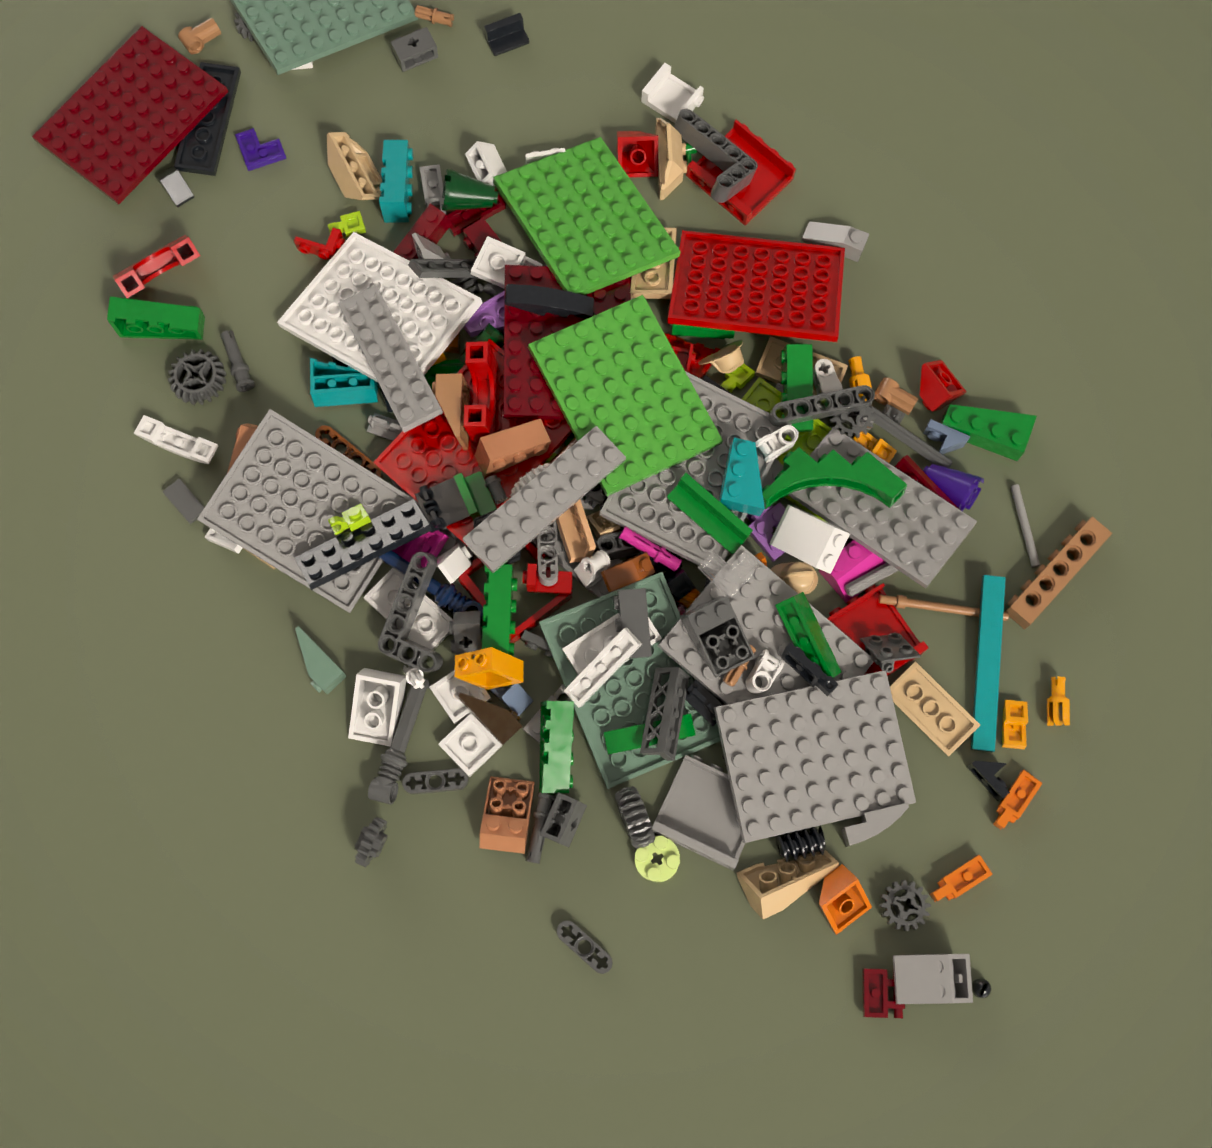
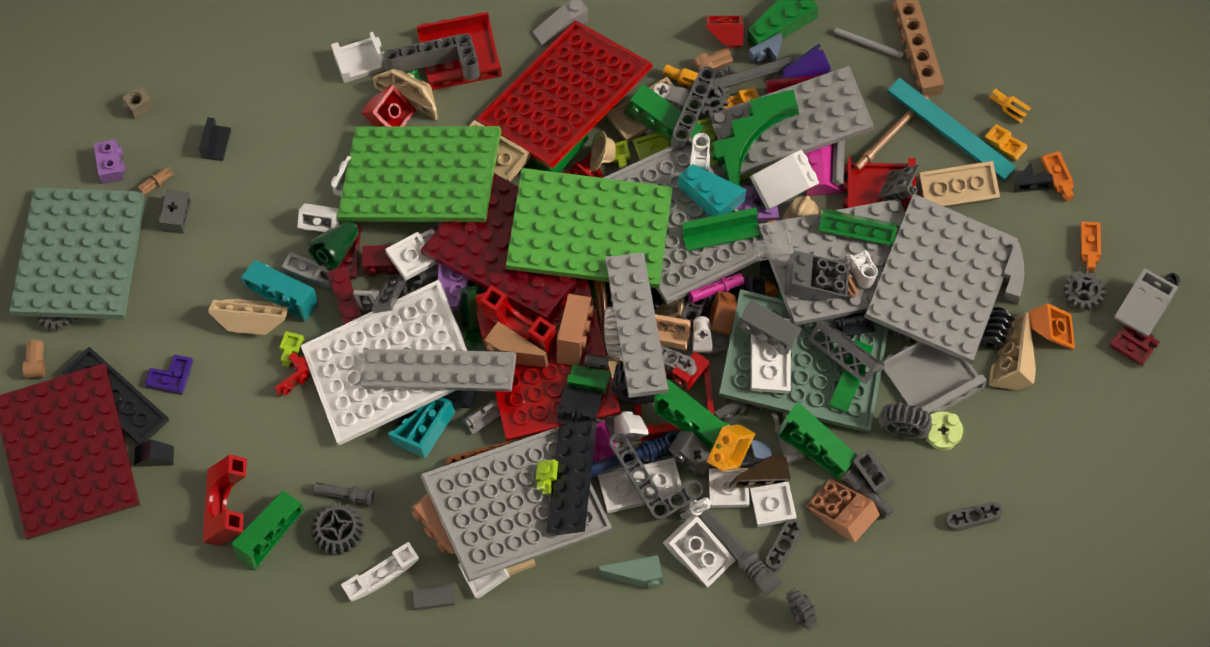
camera: 50 degrees left, 10 degrees down
(544, 299) = (477, 233): black slope -> none
(602, 667) = (787, 365): white plate -> none
(808, 670) = (880, 238): black hinge -> none

